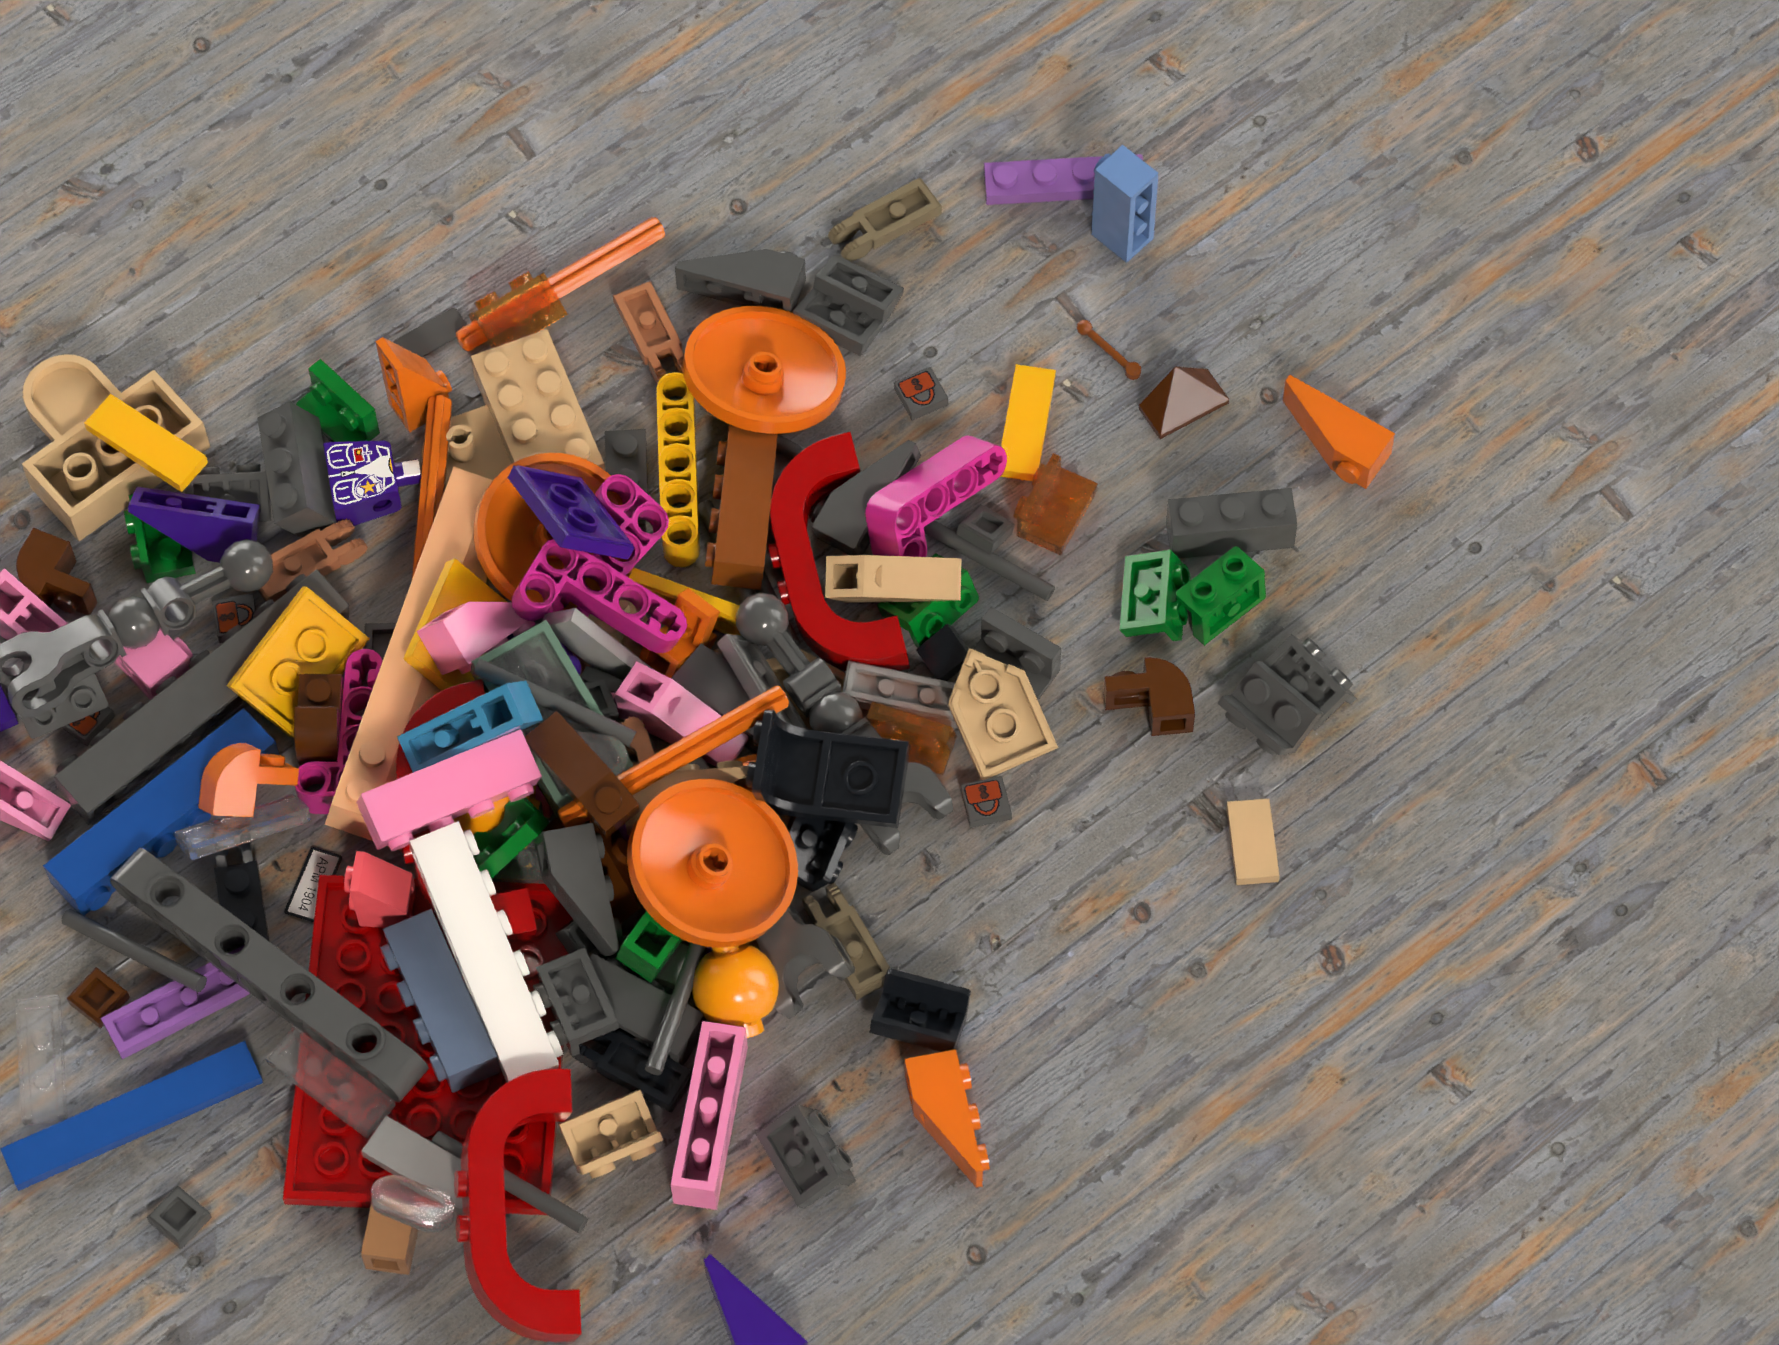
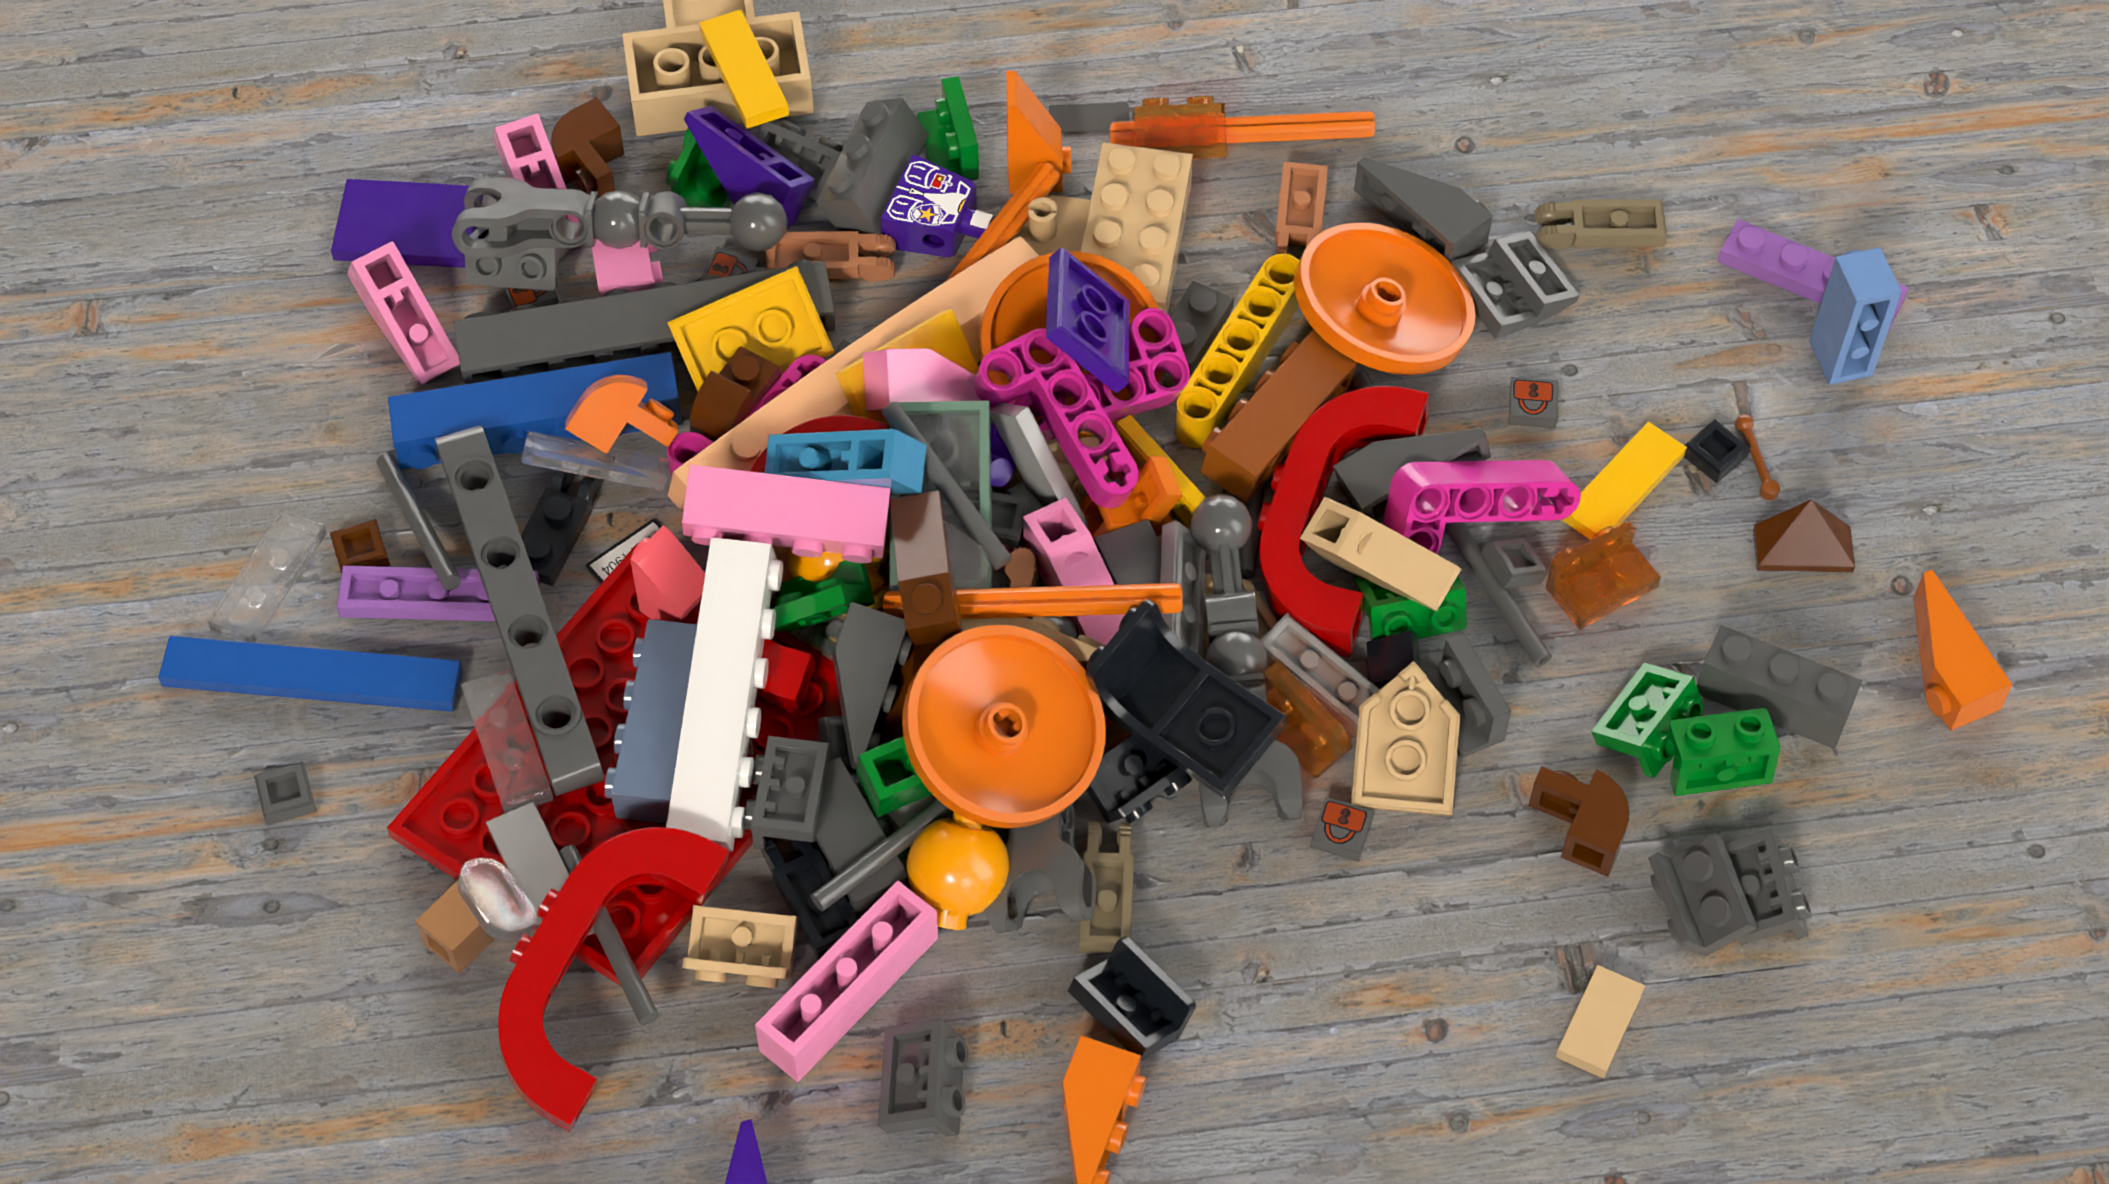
camera: 30 degrees right, 5 degrees down
(1077, 360) = (1716, 451): none -> black tile

